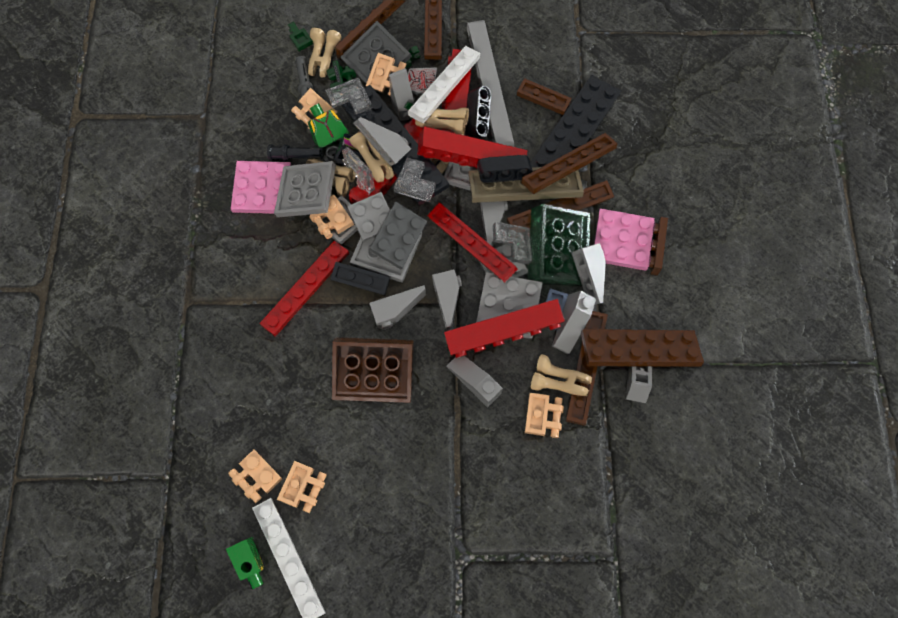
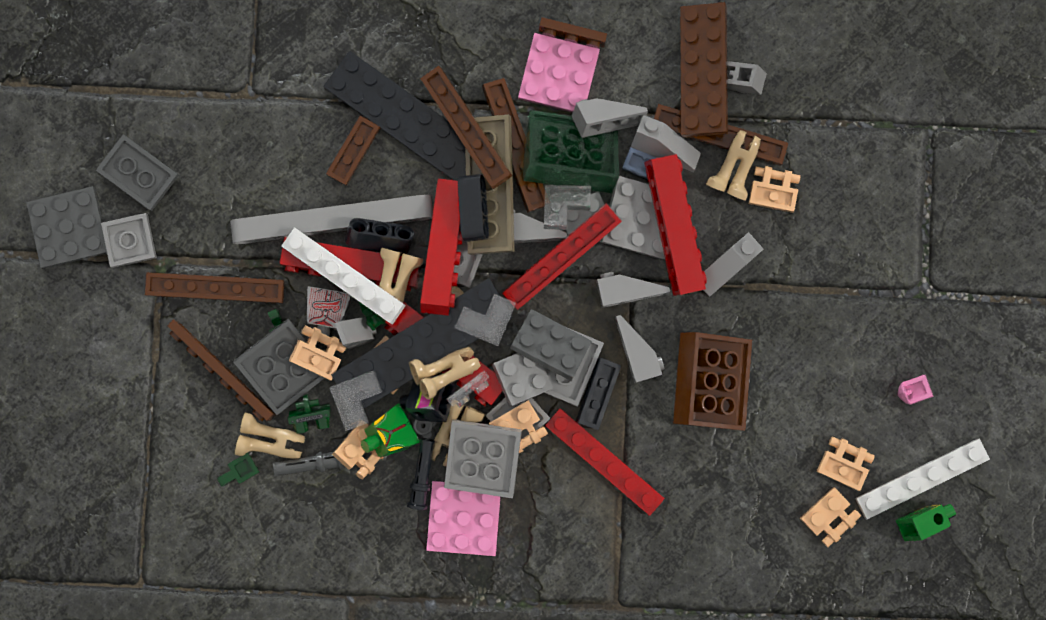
camera: 90 degrees left, 15 degrees up
(368, 548) = (915, 390): none -> bright pink plate
(386, 142) = (439, 350): light grey slope -> none

